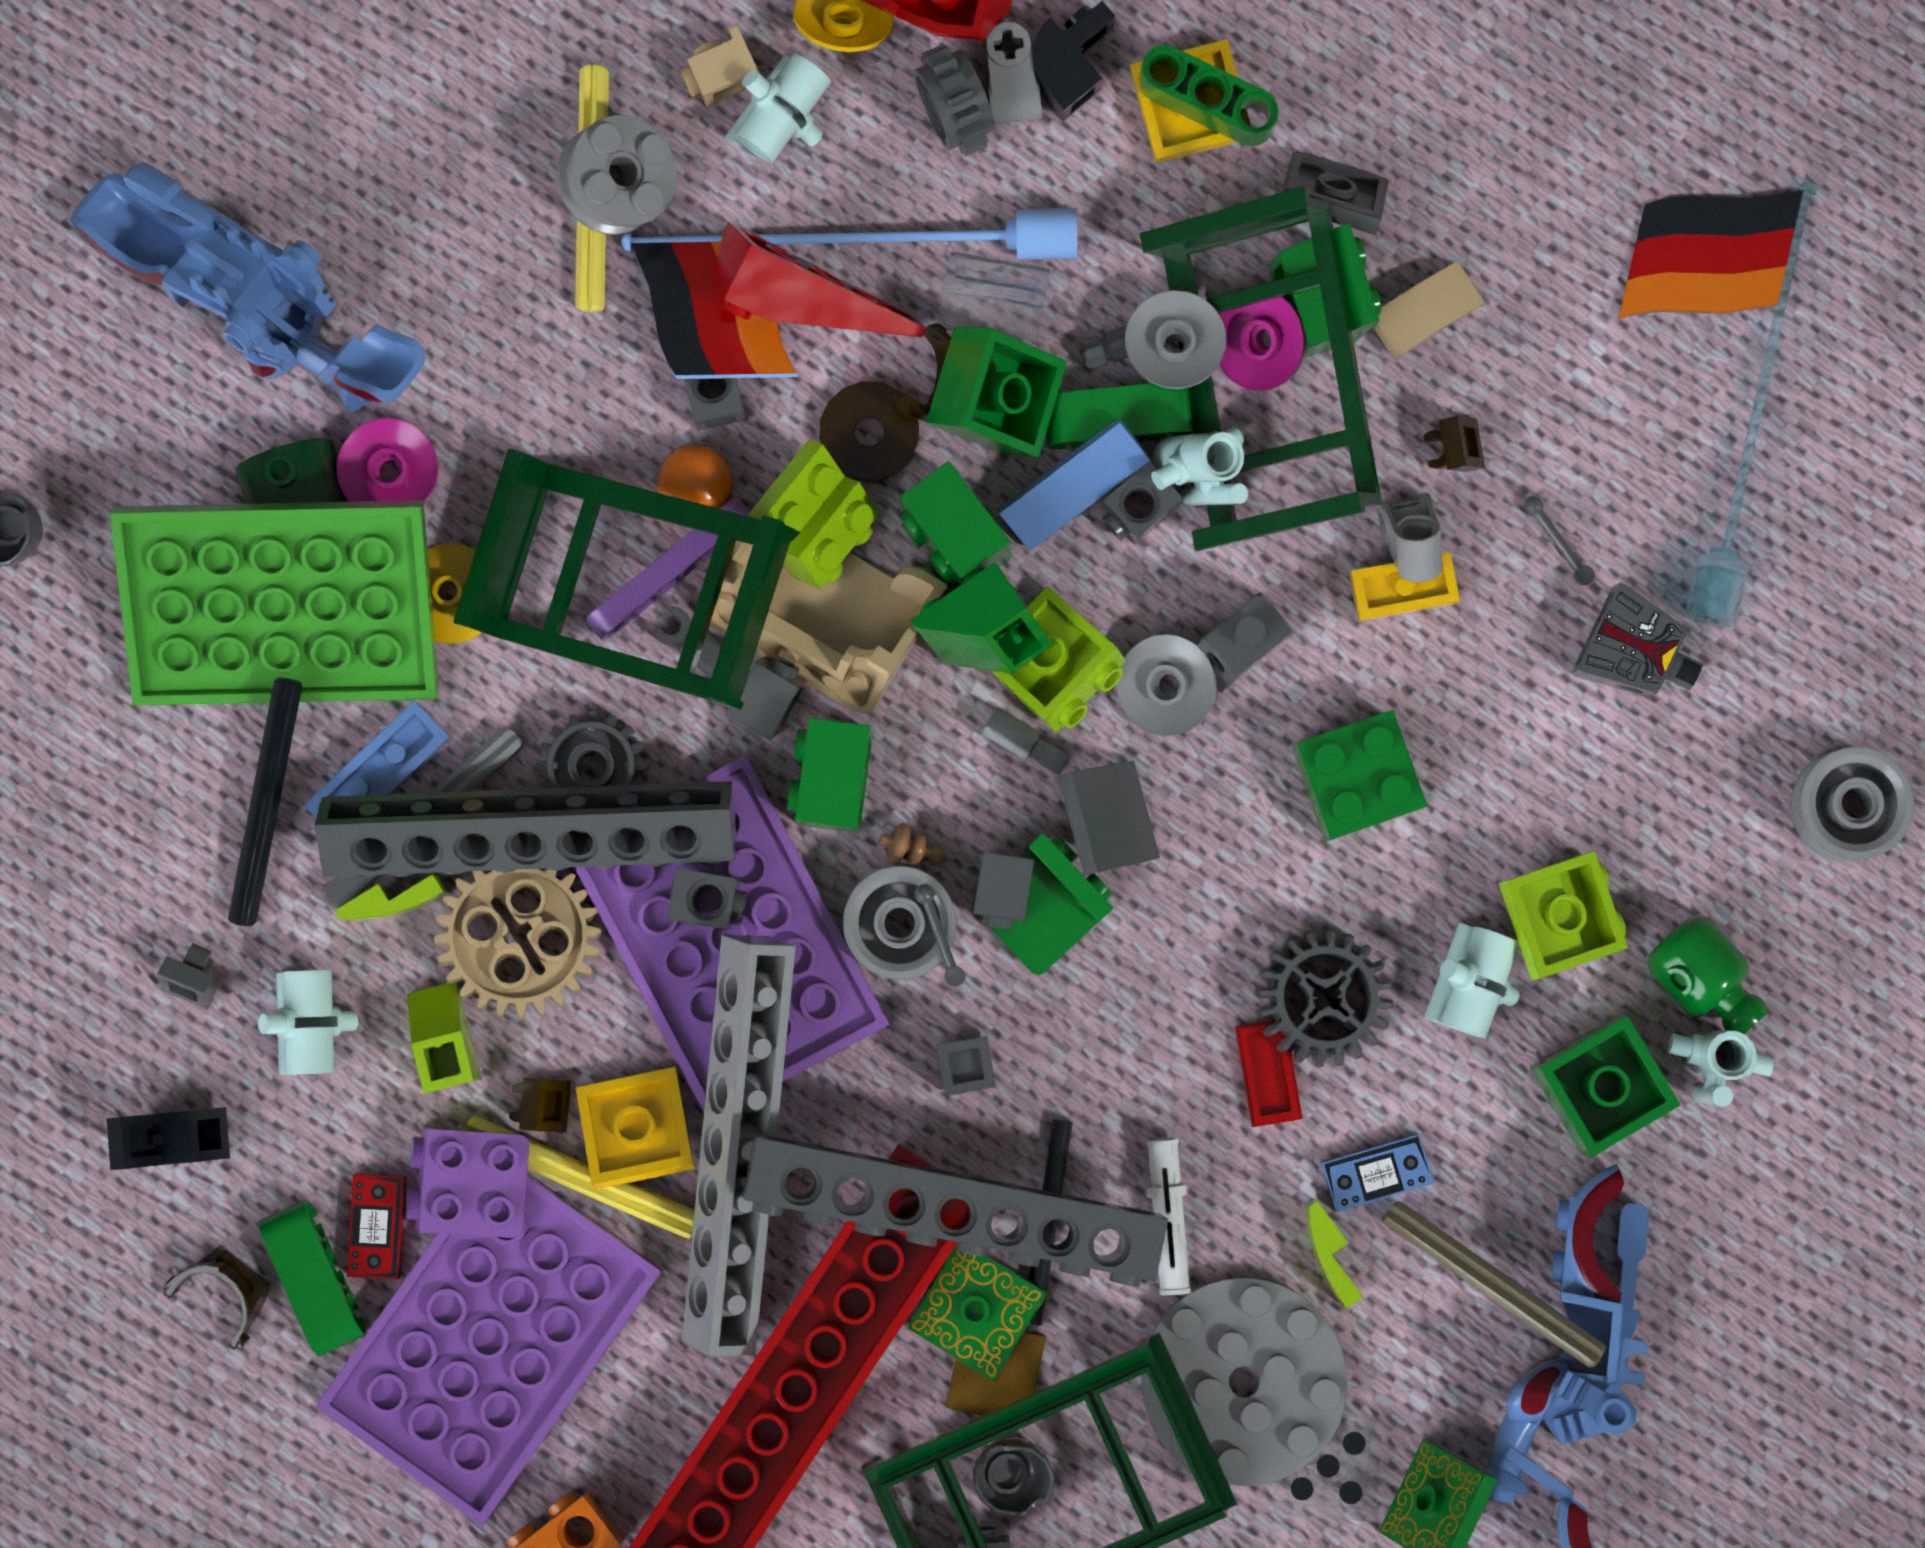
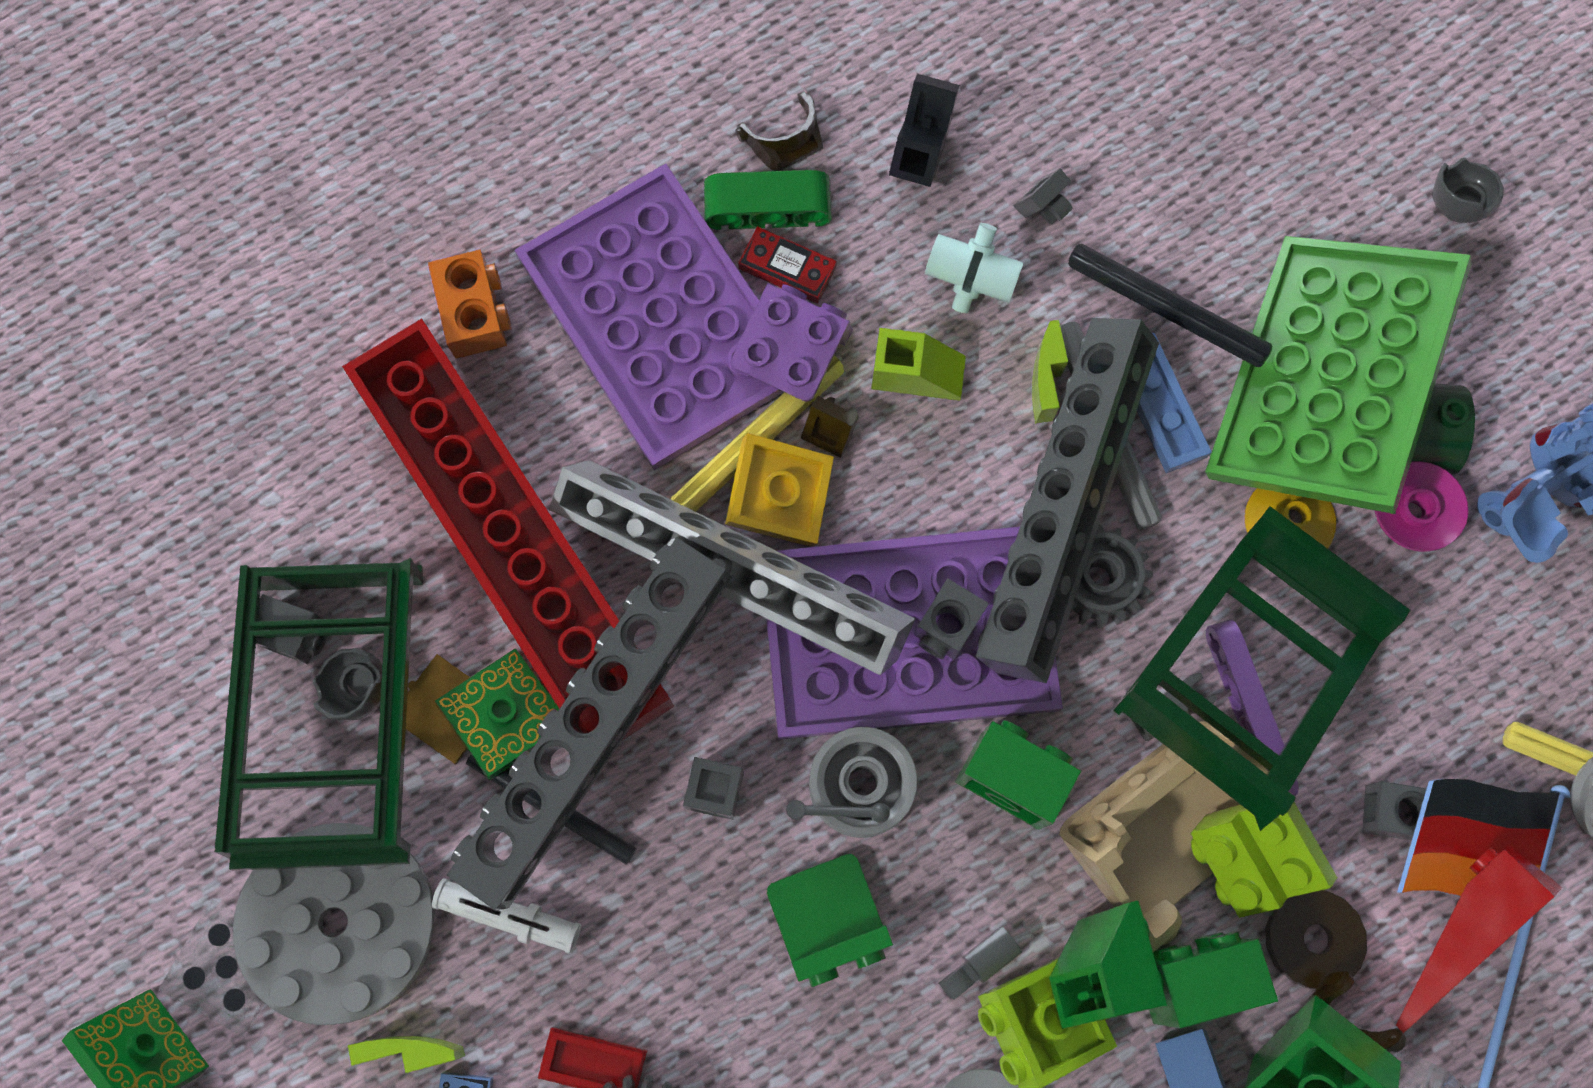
camera: 110 degrees right, 10 degrees down
(478, 960) = (970, 419): tan gear -> none
(696, 475) = (1330, 767): orange hair -> none
(769, 695) = (1108, 748): dark grey brick -> none
(915, 848) = (922, 825): medium nougat hair -> none
(1003, 890) = (855, 886): dark grey brick -> none
(1108, 817) = (883, 1012): dark grey tile -> none

